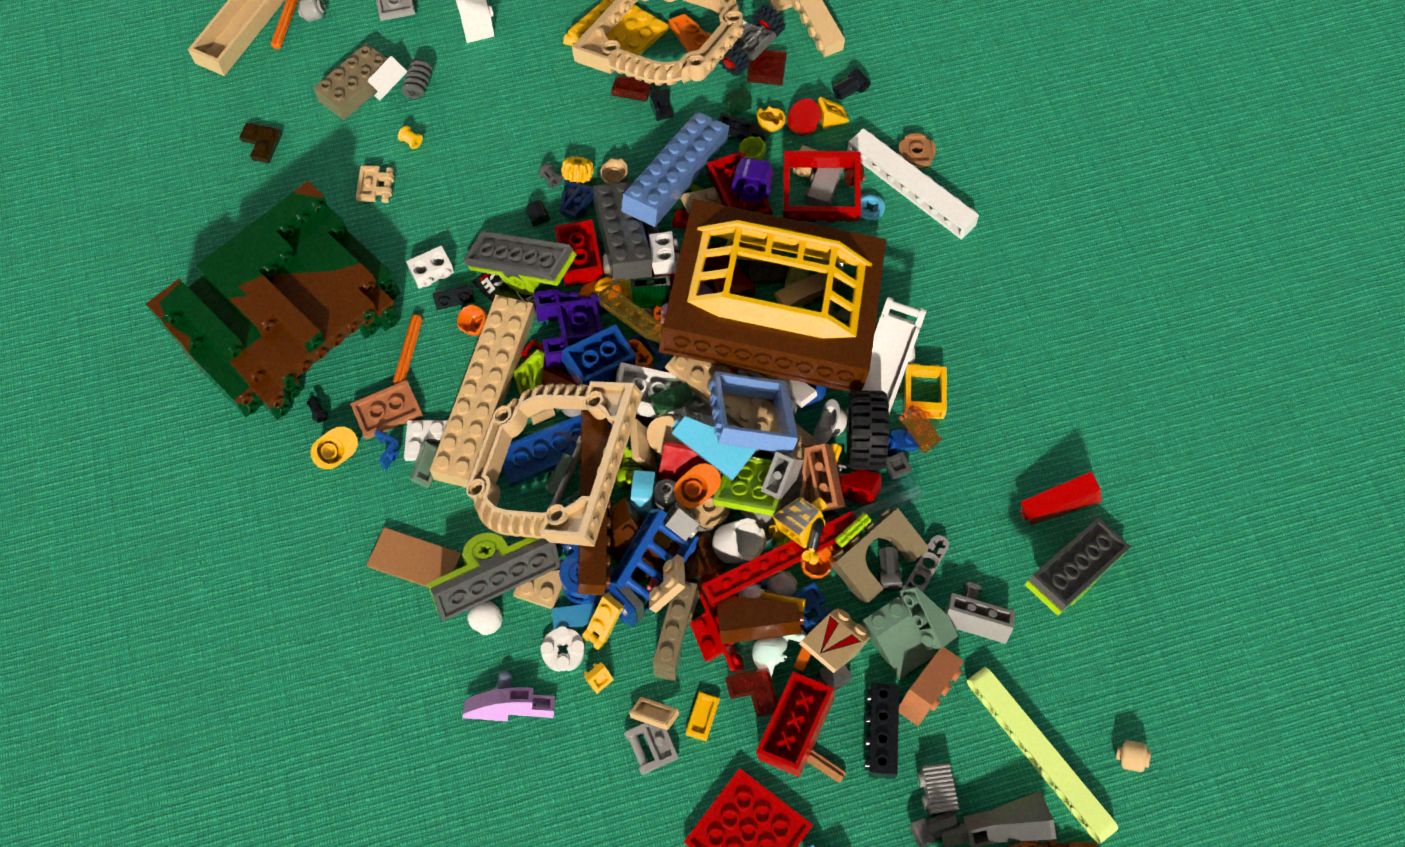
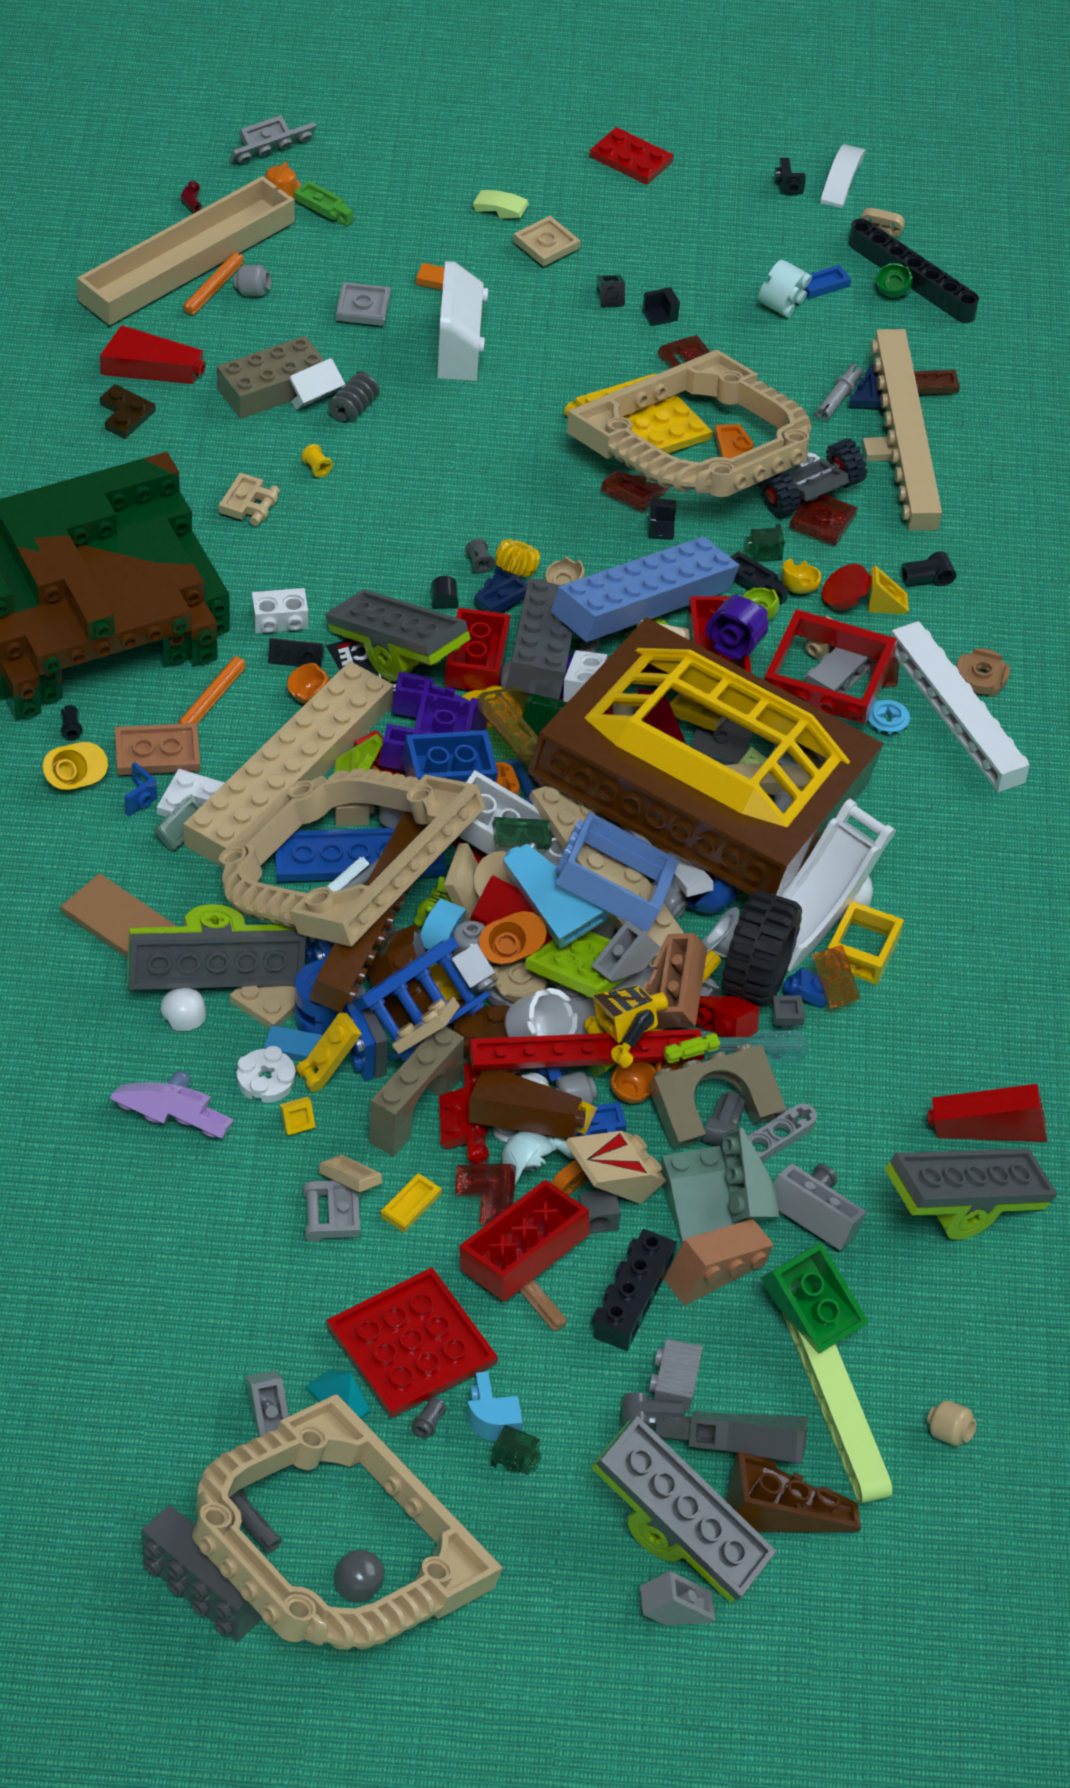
camera: 15 degrees right, 15 degrees down
(262, 93) = (150, 357): none -> red slope
(1011, 698) = (815, 1298): none -> green slope

